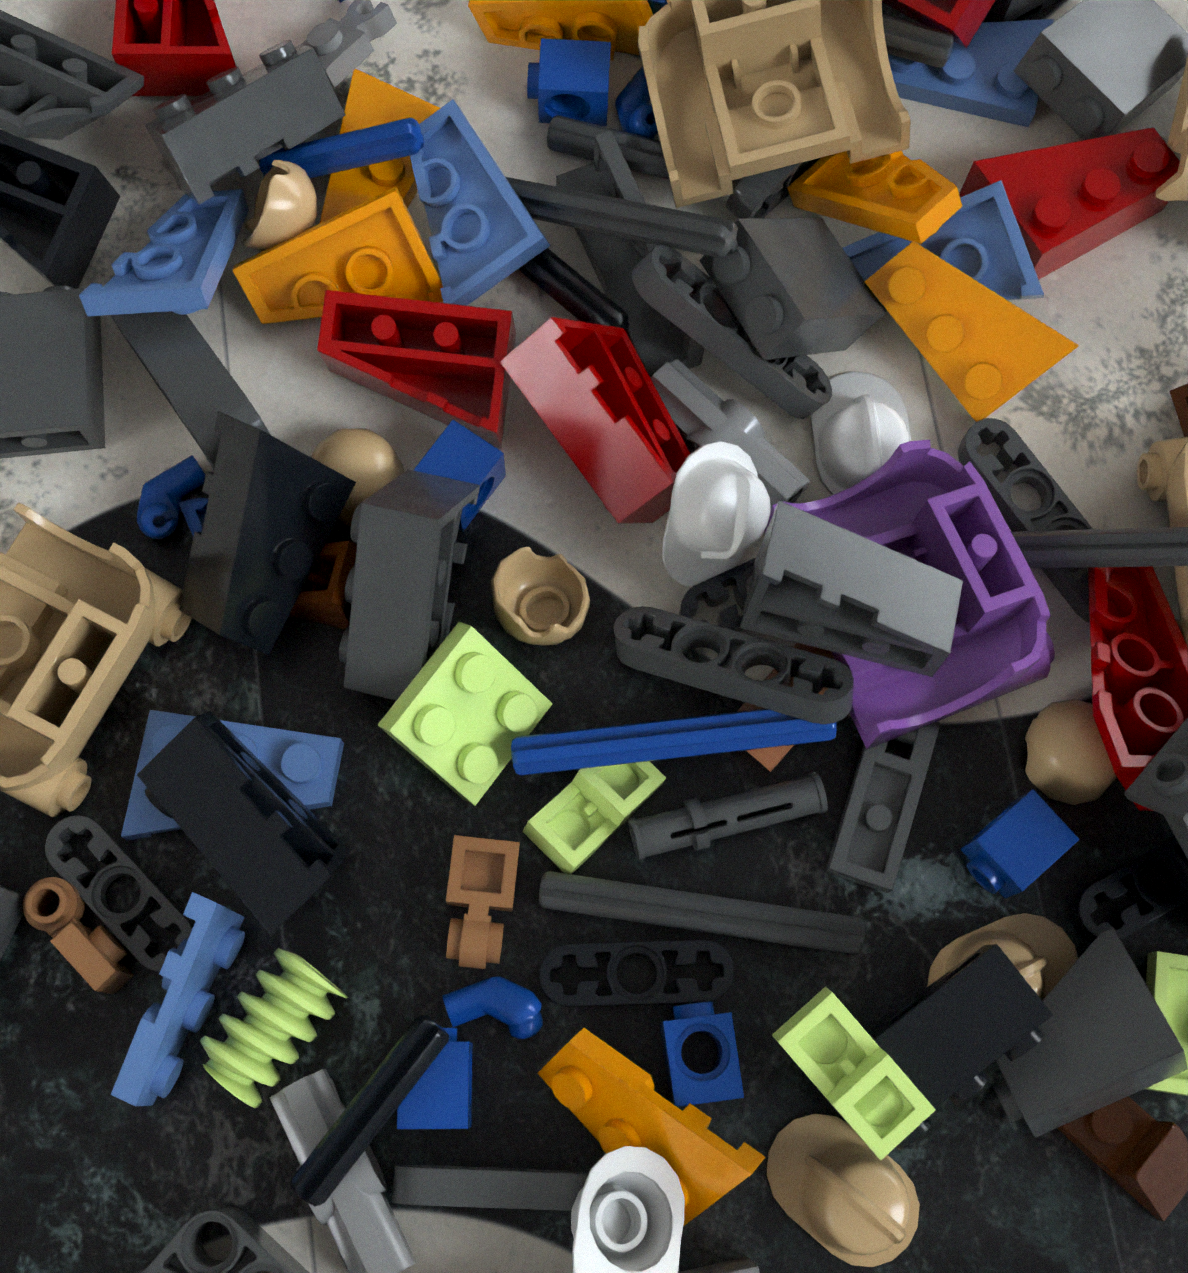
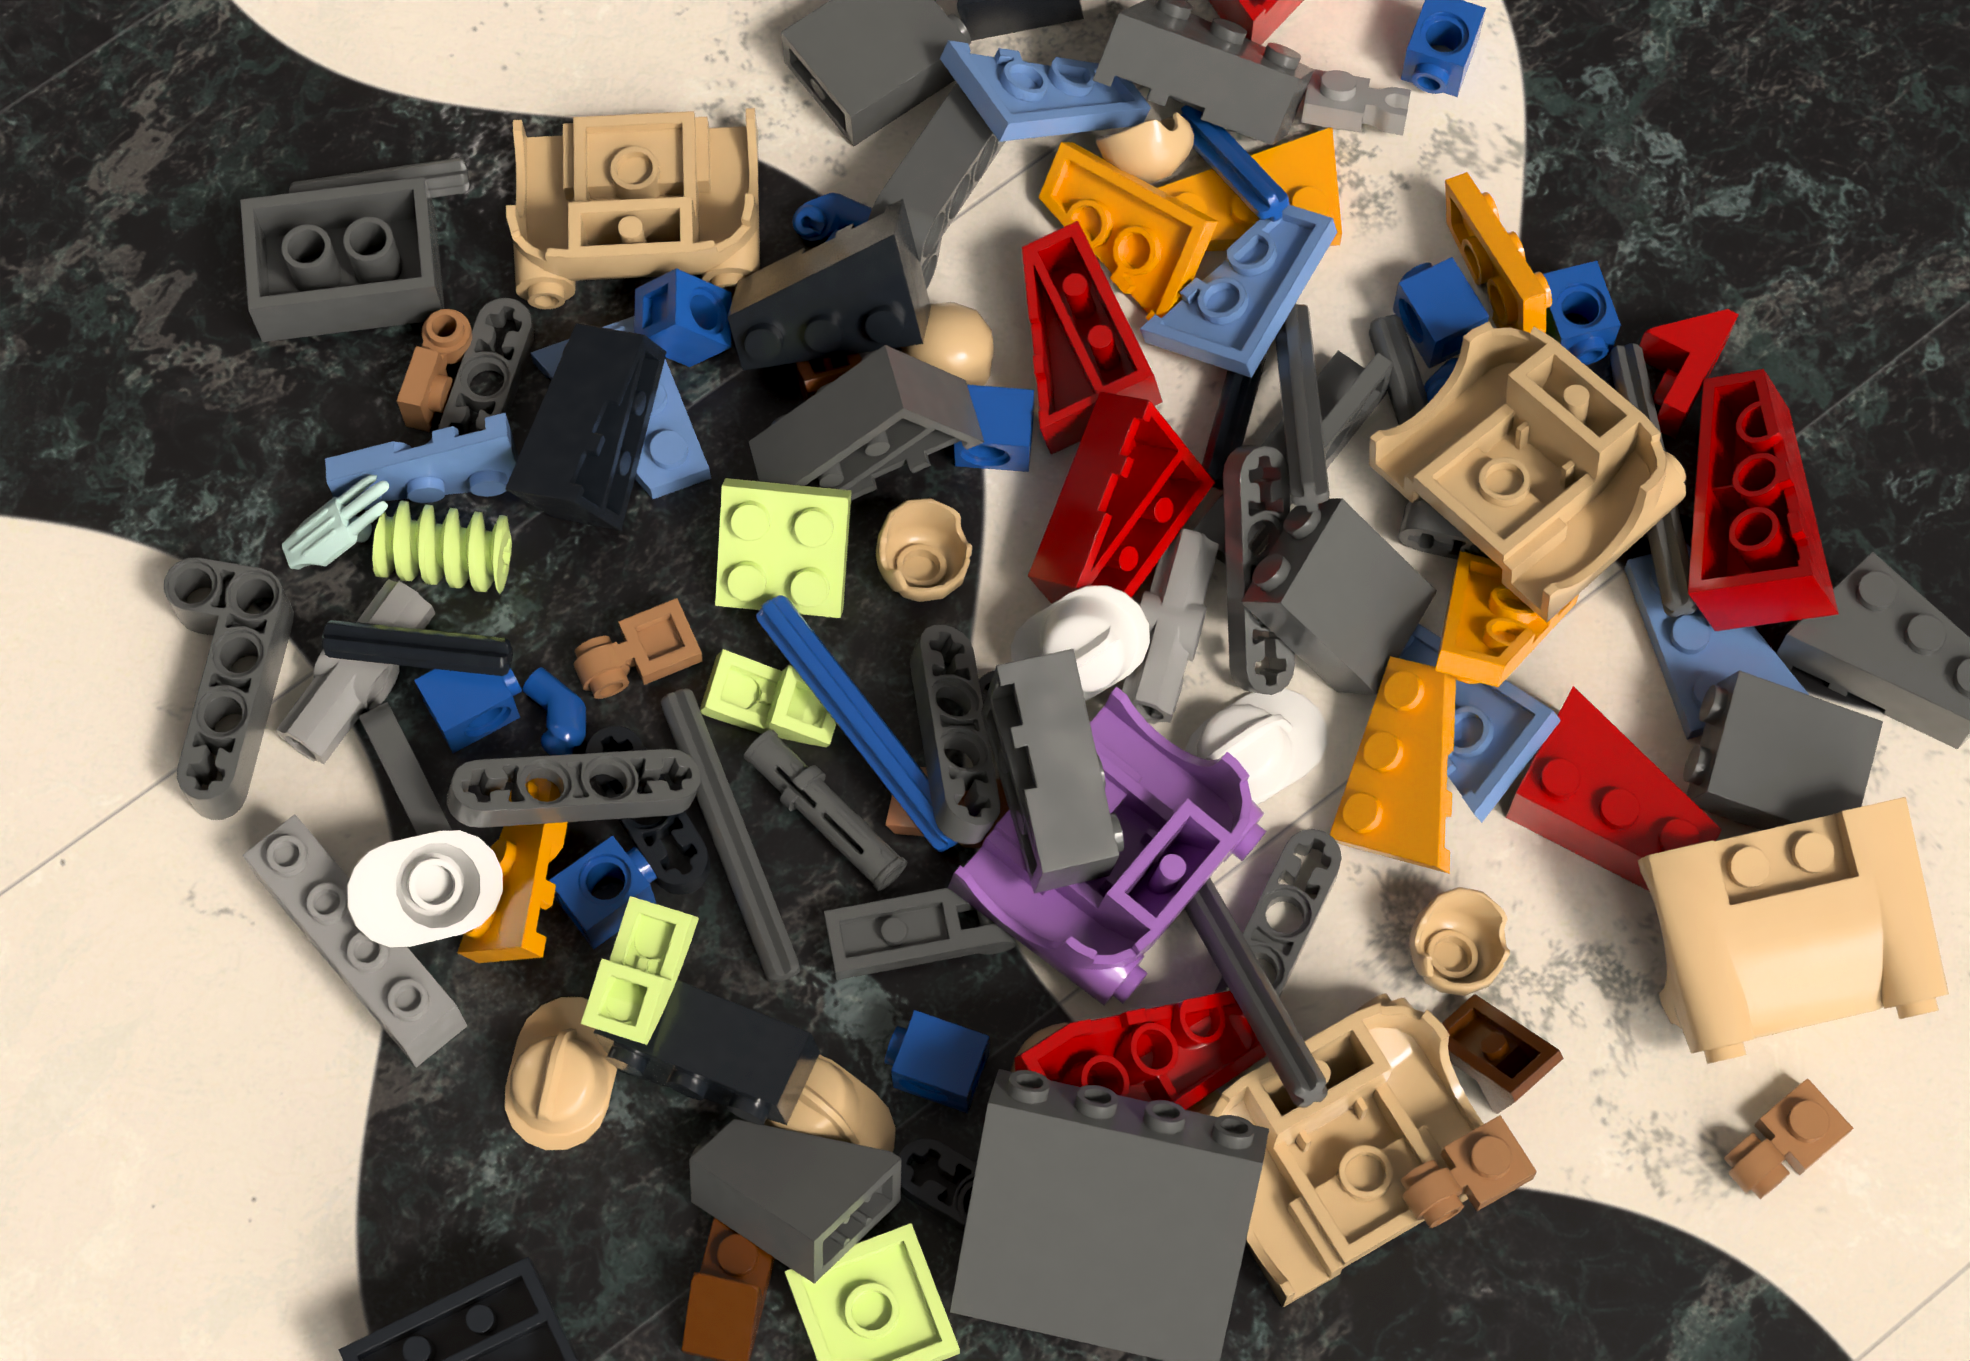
camera: 65 degrees right, 5 degrees down
(181, 1126) = (336, 526): none -> light aqua piece
(182, 677) = (684, 316): none -> blue brick
(598, 1031) = (572, 777): none -> dark grey beam
(1128, 376) = (1459, 941): none -> tan hair

